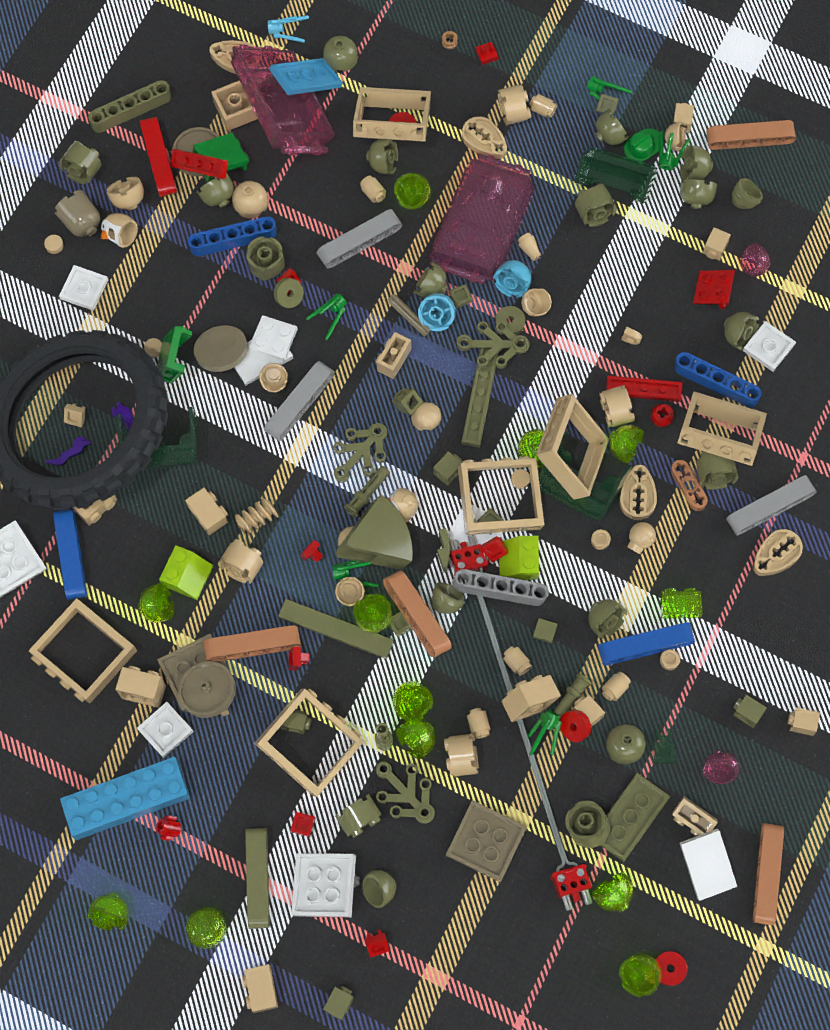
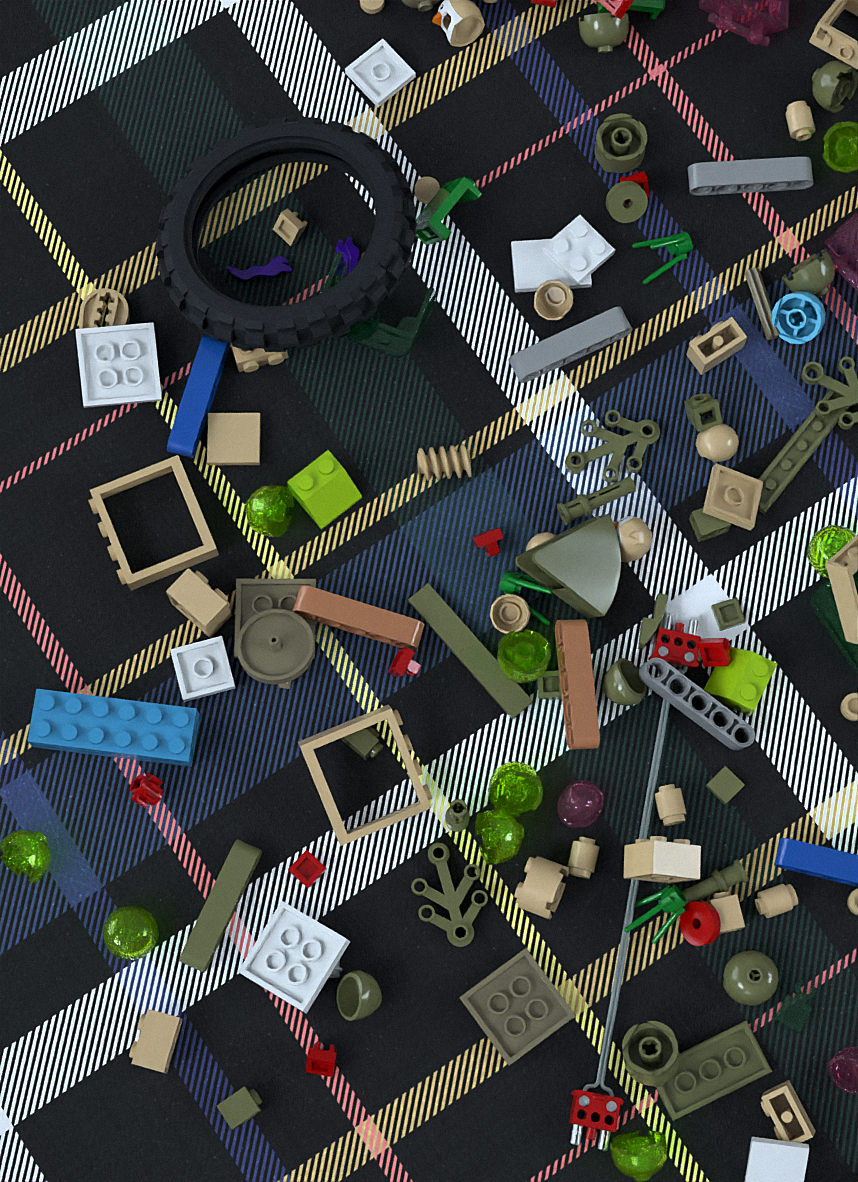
camera: 25 degrees right, 5 degrees up
(108, 570) = (233, 439): none -> tan tile
(207, 511) = (387, 426): tan brick -> none
(220, 348) = (507, 231): dark tan piece -> none
(223, 233) = (584, 87): blue beam -> none
(241, 562) = (396, 510): tan brick -> none
(250, 199) = (640, 59): tan cylinder -> none
(358, 816) = (377, 896): olive brick -> none
(454, 444) = (733, 496): none -> tan tile
(458, 690) = (580, 804): none -> clear pink hat
(460, 296) = (839, 311): olive tile -> none
(500, 526) = (740, 629): tan window -> none
(520, 479) = (793, 580): tan tile -> none
(606, 617) = (809, 808): olive cylinder -> none

